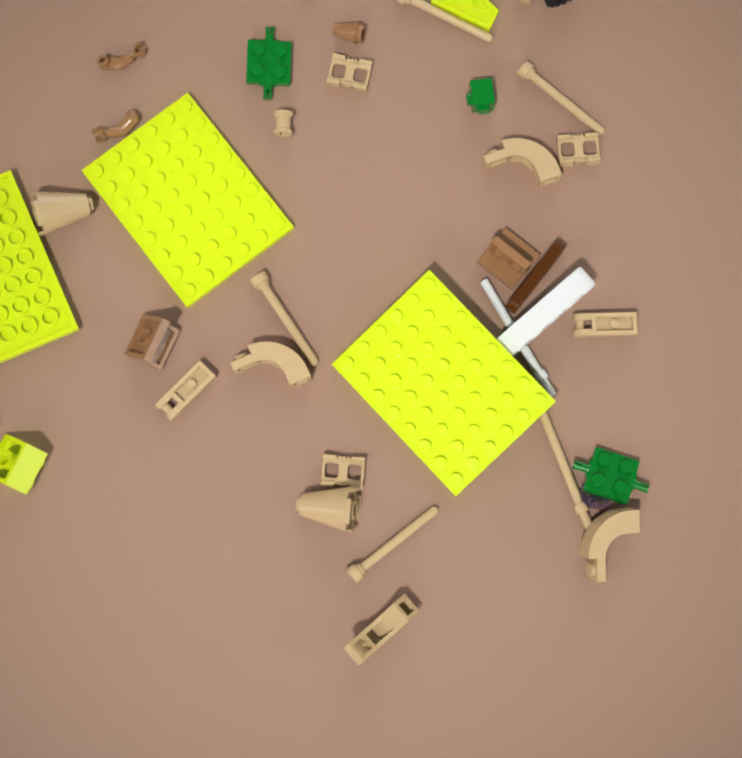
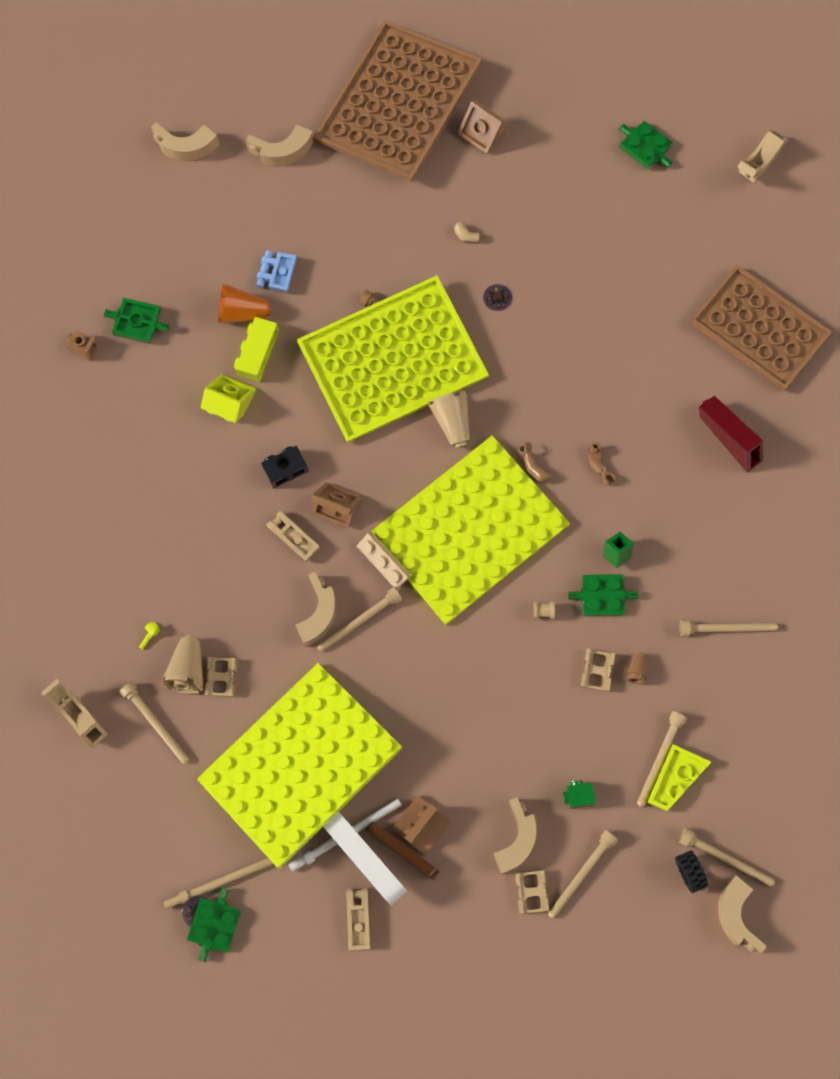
camera: 90 degrees right, 5 degrees down
(97, 386) = (279, 476): none -> black brick
(219, 290) = (384, 560): none -> tan plate
(220, 42) = (618, 549): none -> green brick
(286, 548) = (153, 630): none -> neon yellow hand
(602, 533) = (159, 915): tan arch -> none

